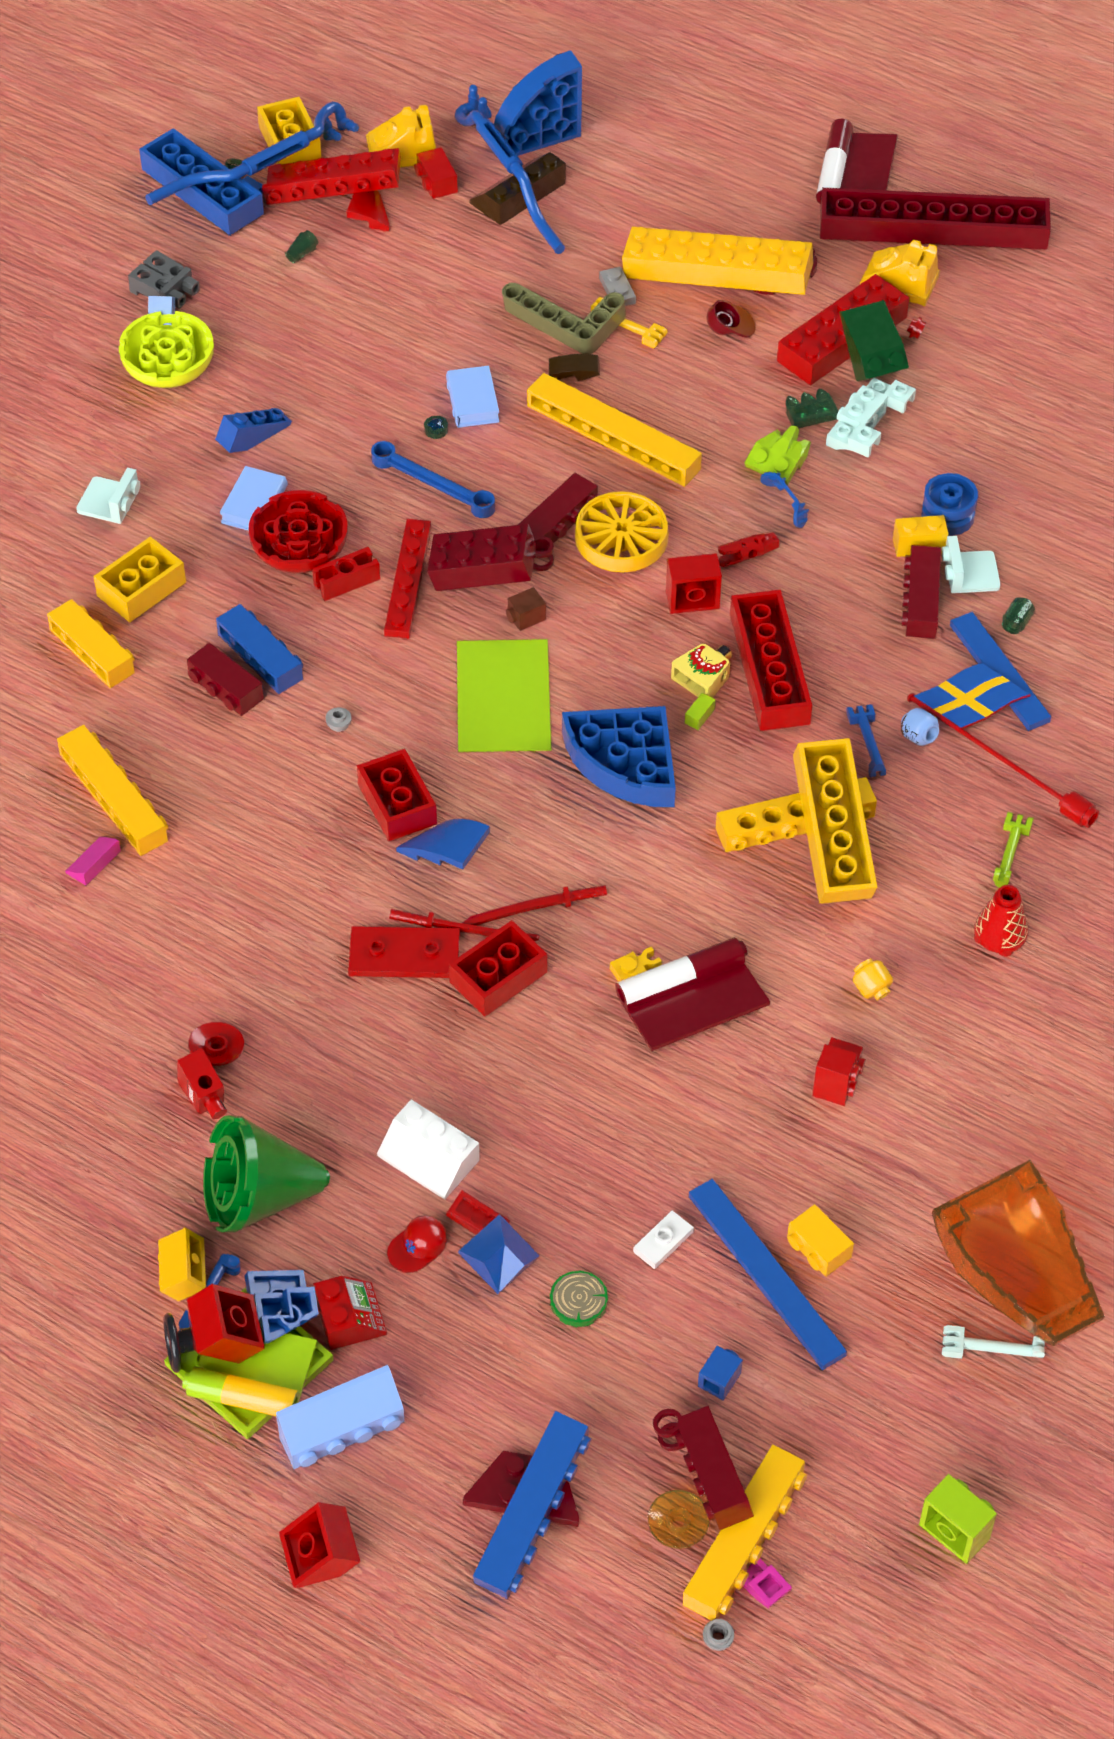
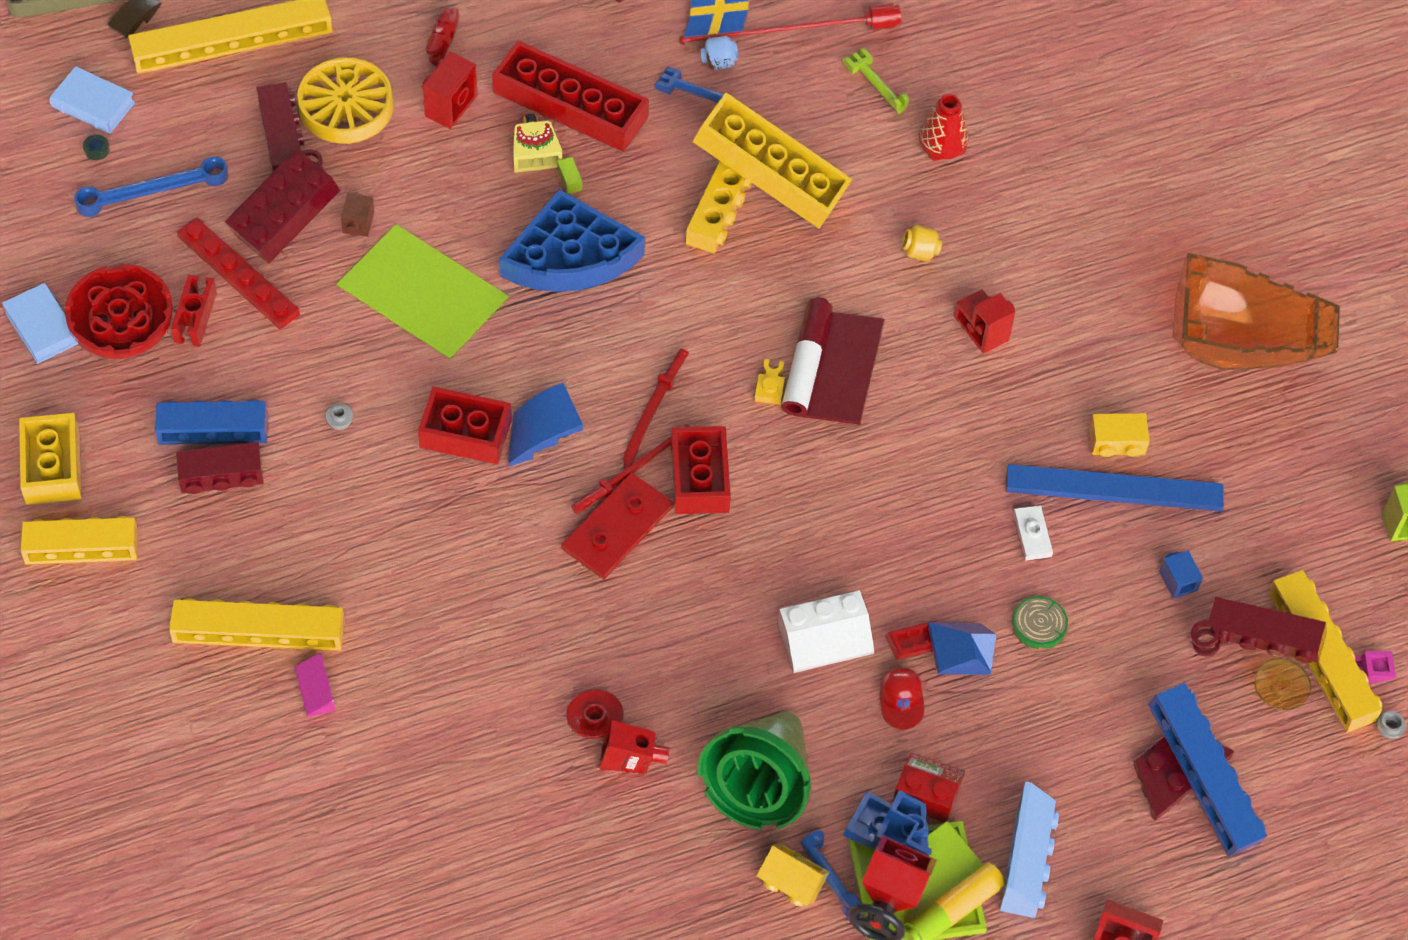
camera: 55 degrees left, 5 degrees up
(956, 1342) = (1269, 410): light aqua hinge -> none

